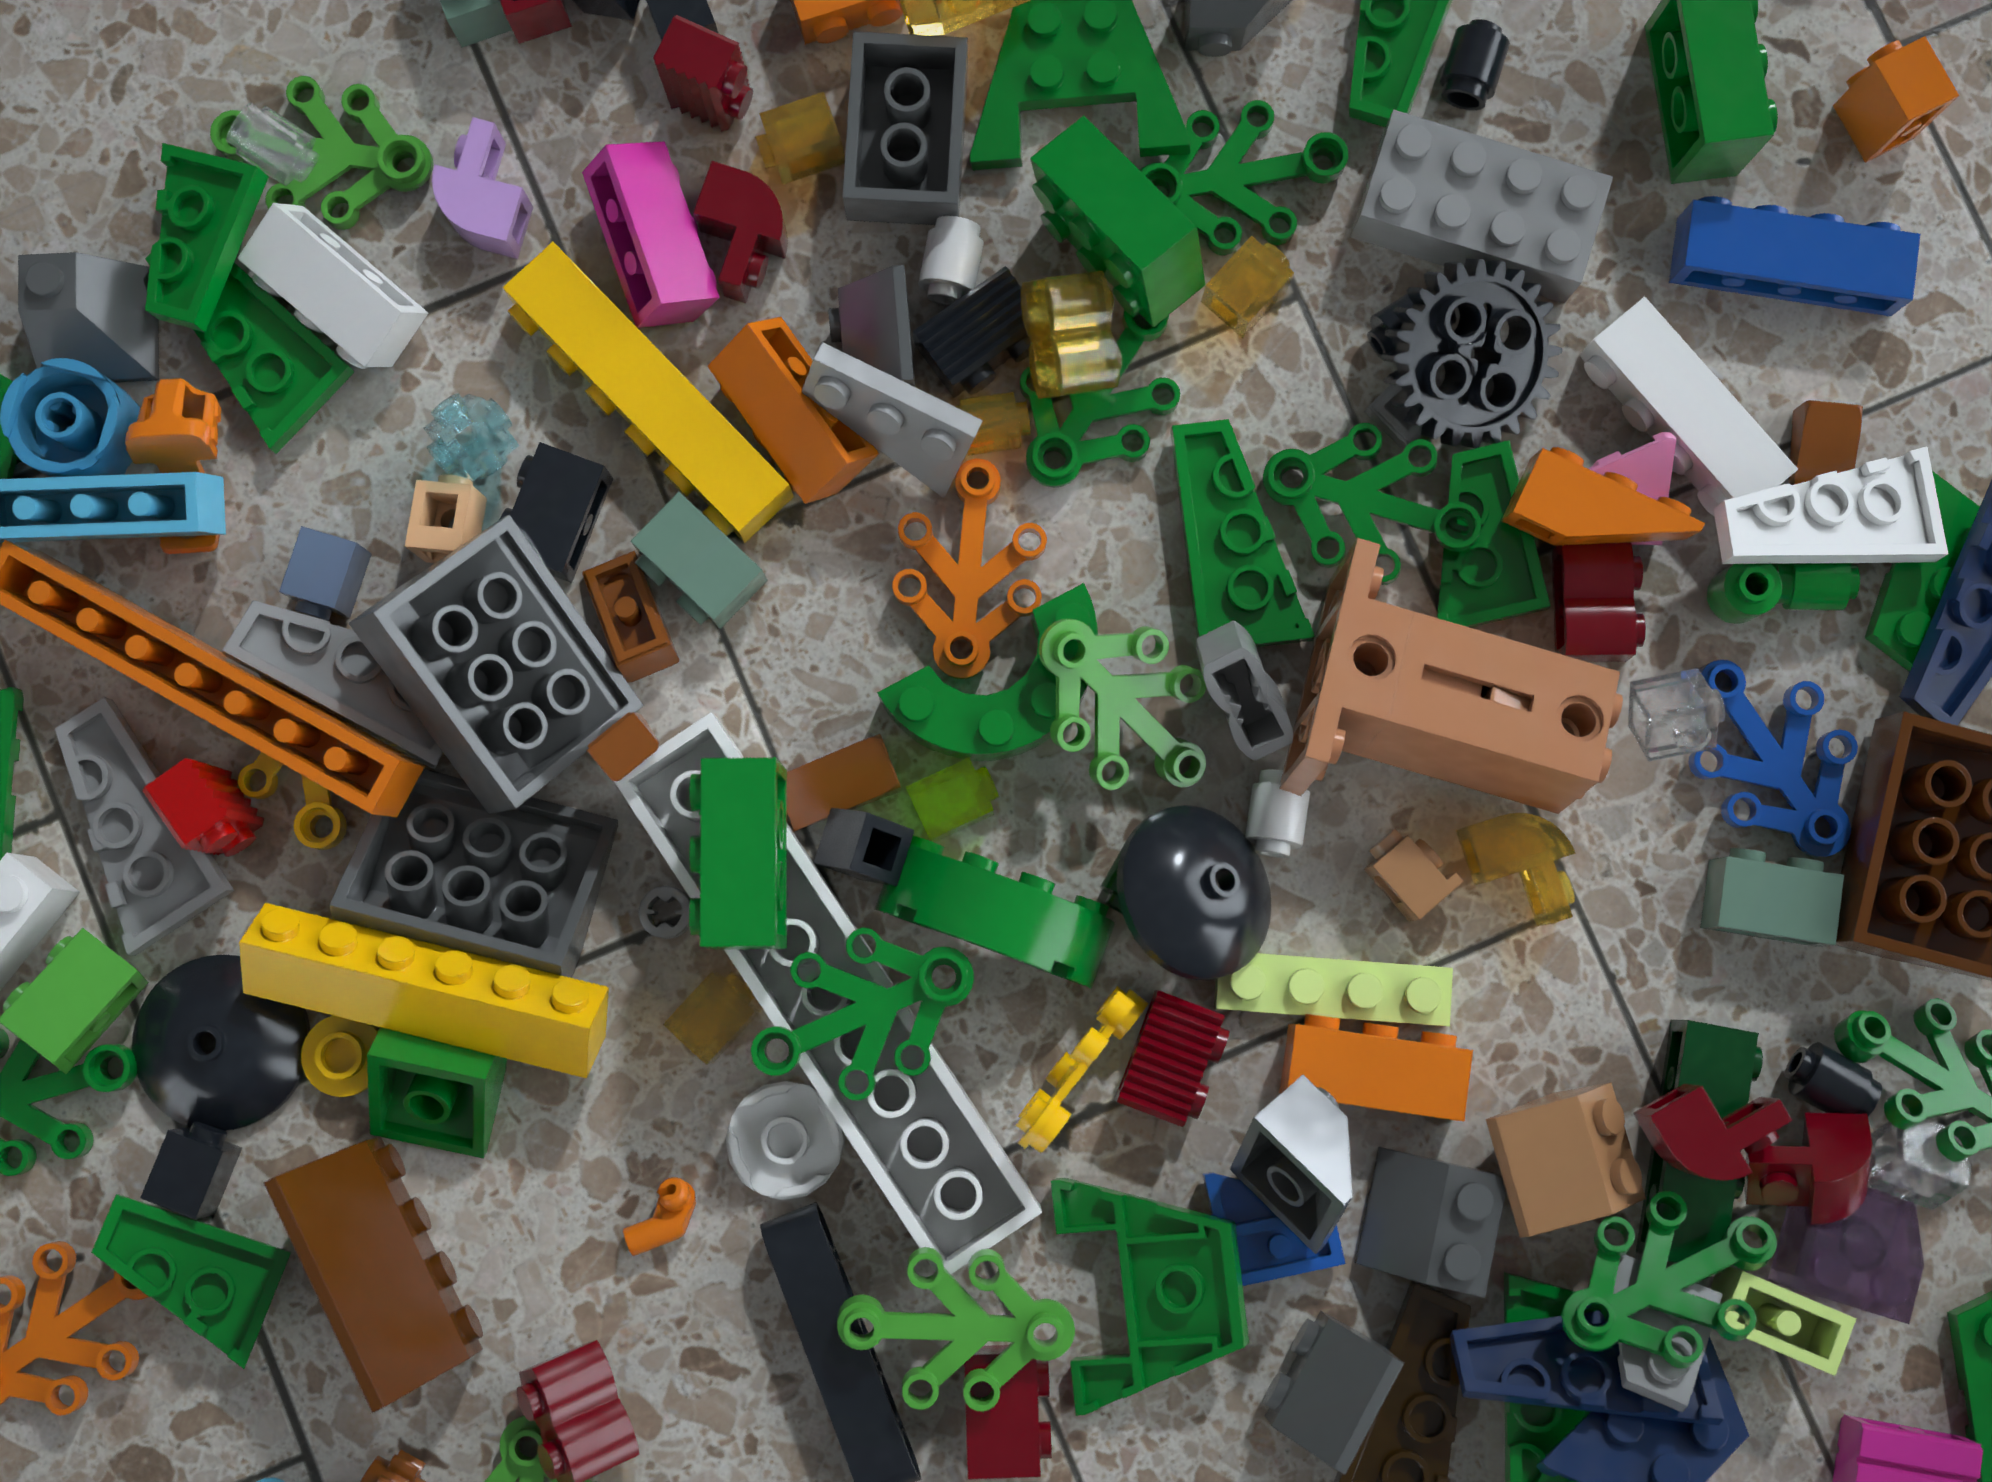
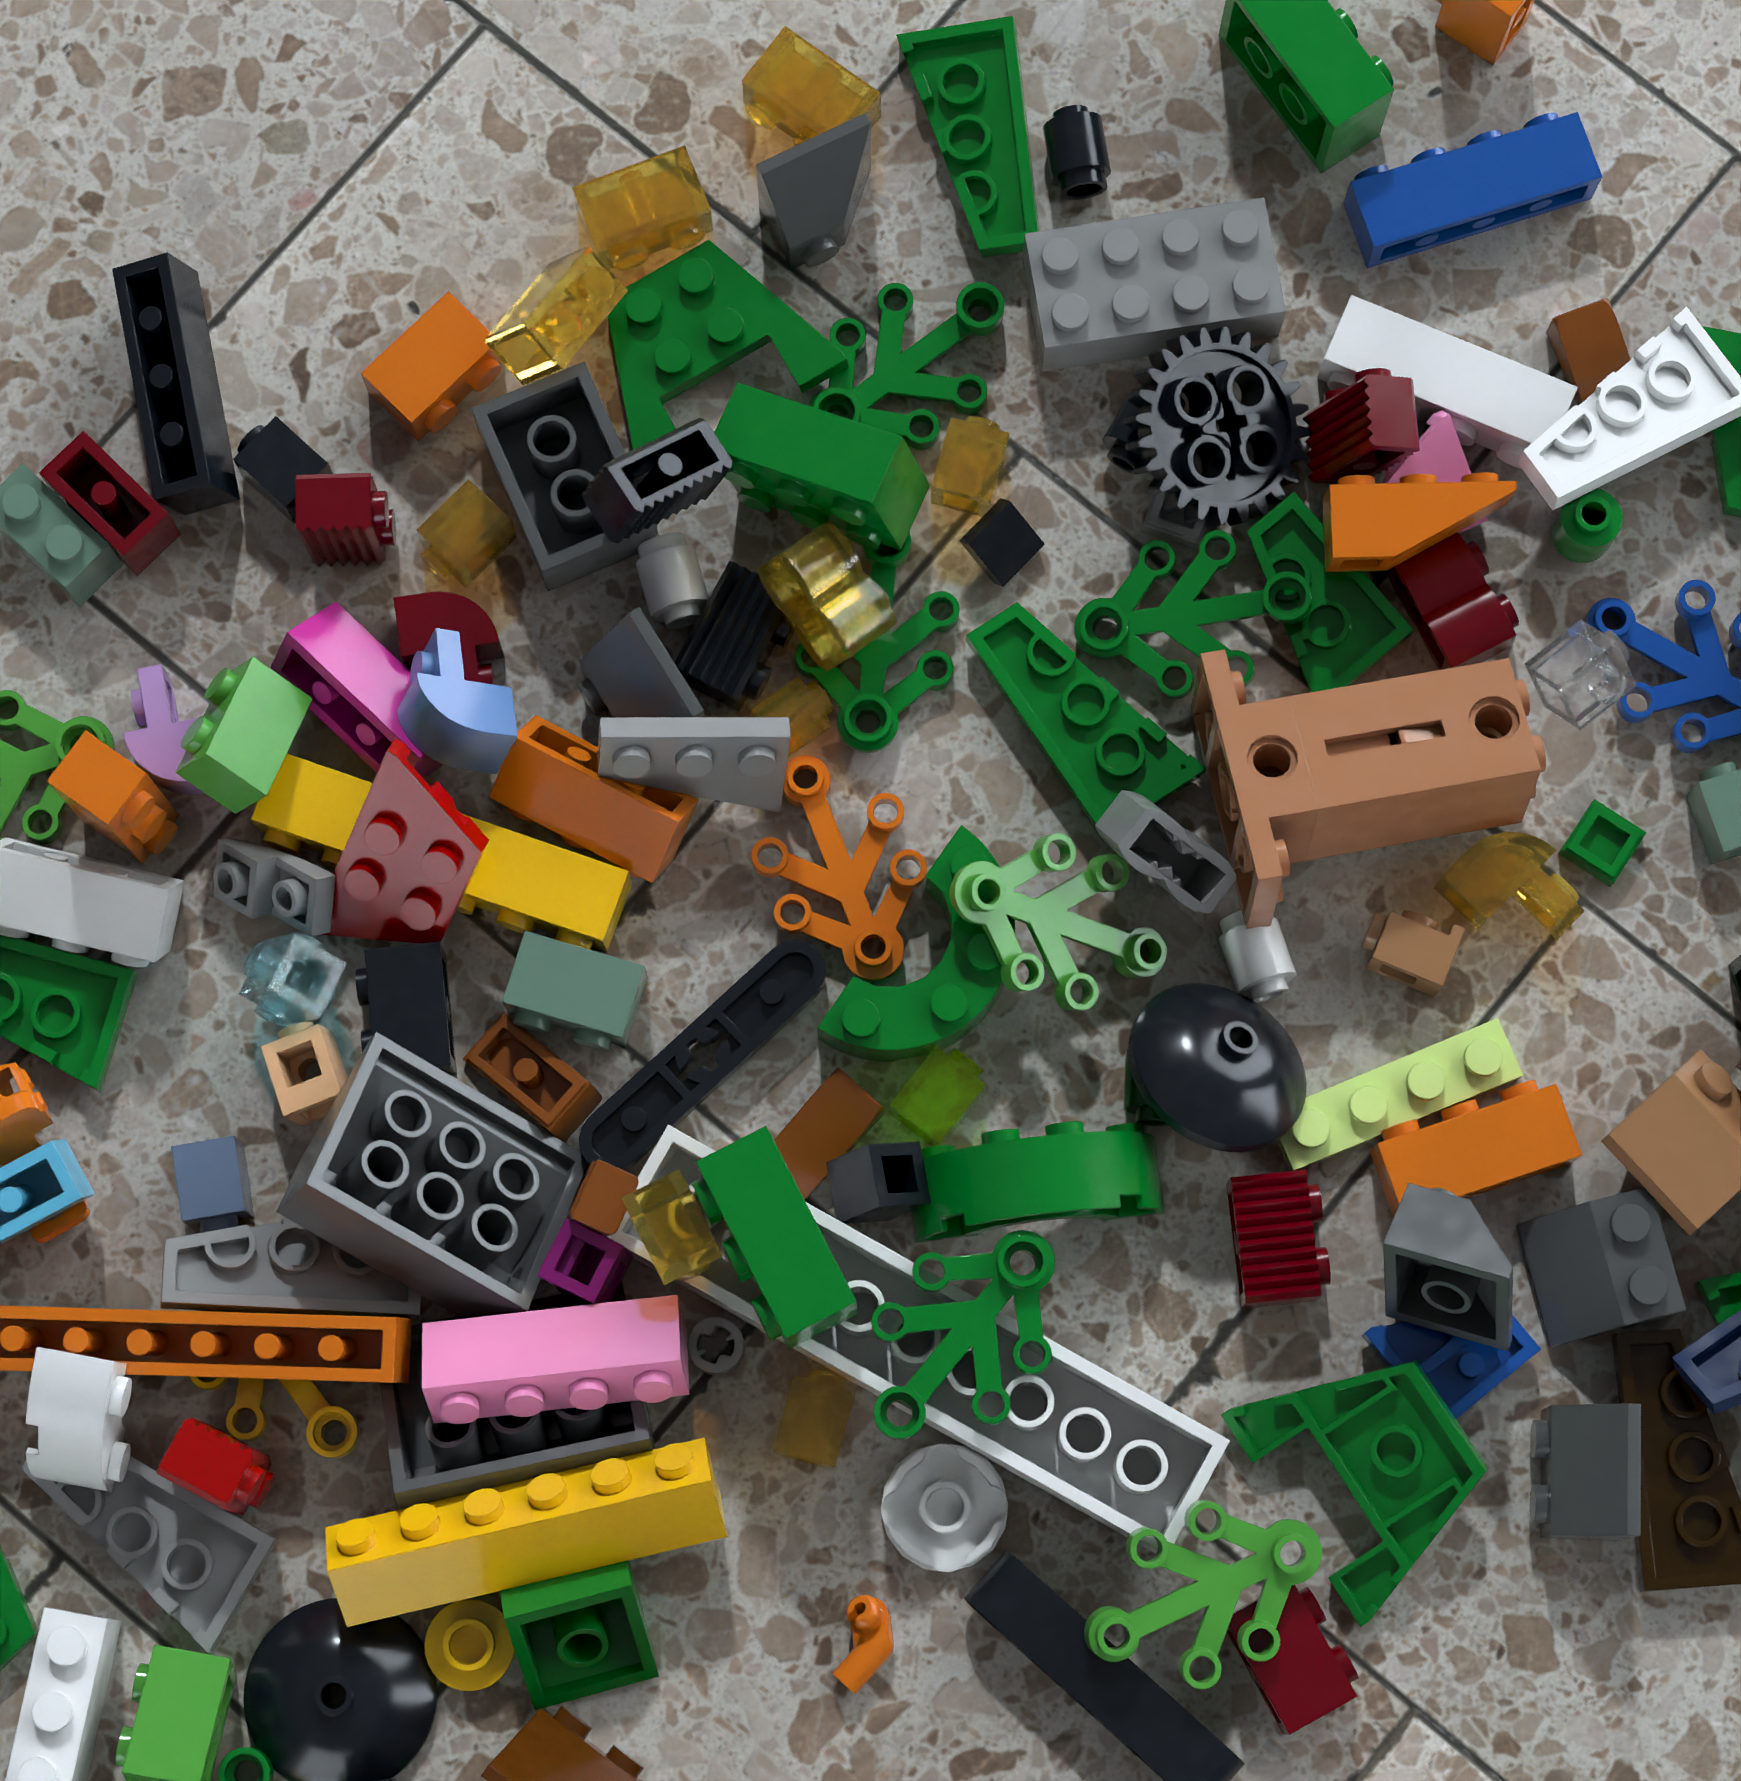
camera: 25 degrees left, 5 degrees down
(105, 710) = (78, 1419): none -> white brick
(393, 212) = (115, 798): none -> orange brick
(496, 348) = (273, 882): none -> light grey slope
(519, 860) = (555, 1359): none -> bright pink brick
(526, 213) = (243, 734): none -> bright green brick
(584, 795) = (585, 1264): none -> magenta brick
(605, 381) = (404, 859): none -> wing
(661, 801) = (672, 1228): none -> clear yellow brick
(706, 284) = (454, 718): none -> medium blue brick
(720, 682) = (748, 1012): none -> black piece
(972, 164) = (657, 480): none -> black brick
(1043, 1115) = (1188, 1346): yellow plant -> none
(1242, 362) = (1002, 542): none -> black tile
(1596, 413) = (1362, 427): none -> dark red brick
(1617, 864) = (1602, 843): none -> green tile
(1818, 585) = (1652, 486): green brick -> none

